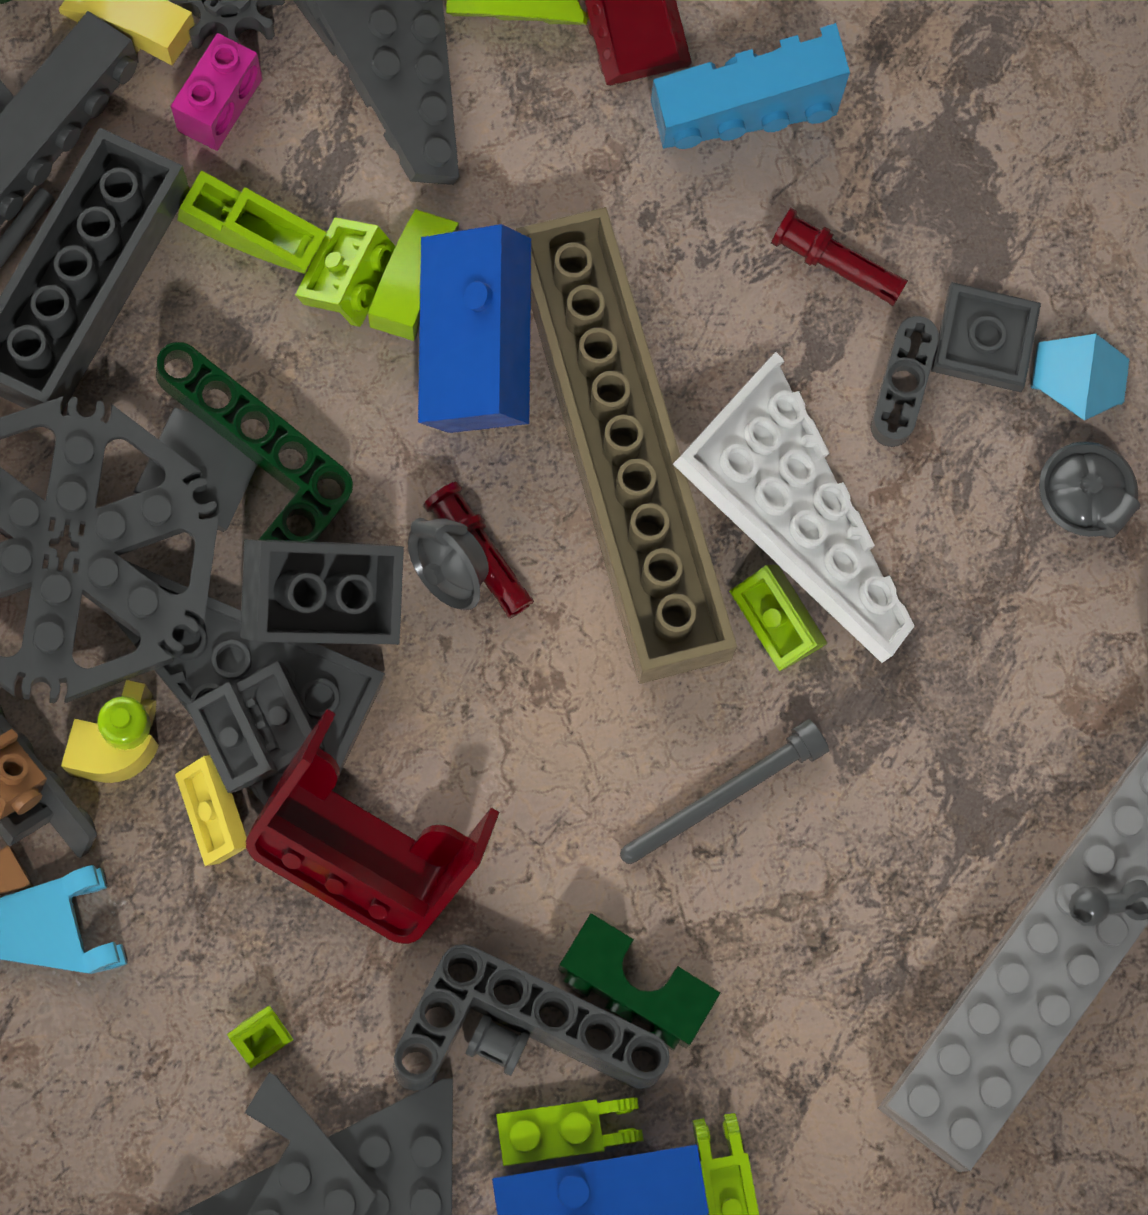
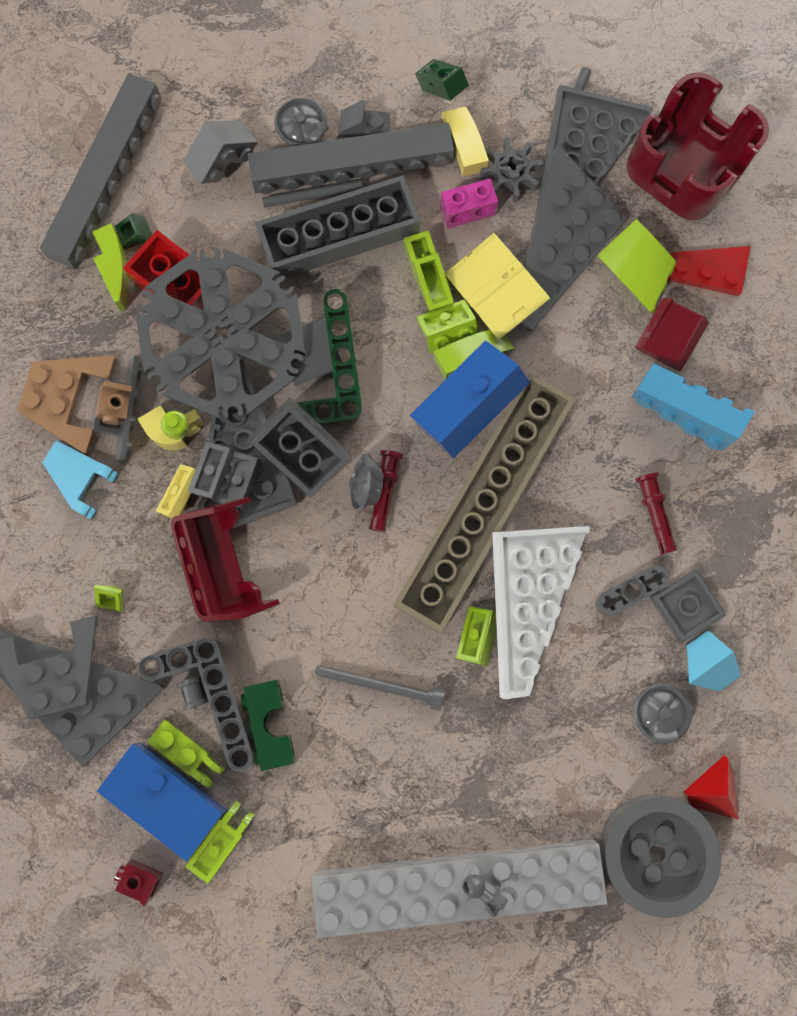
camera: 50 degrees right, 5 degrees up
(360, 162) = (497, 286): none -> light yellow piece

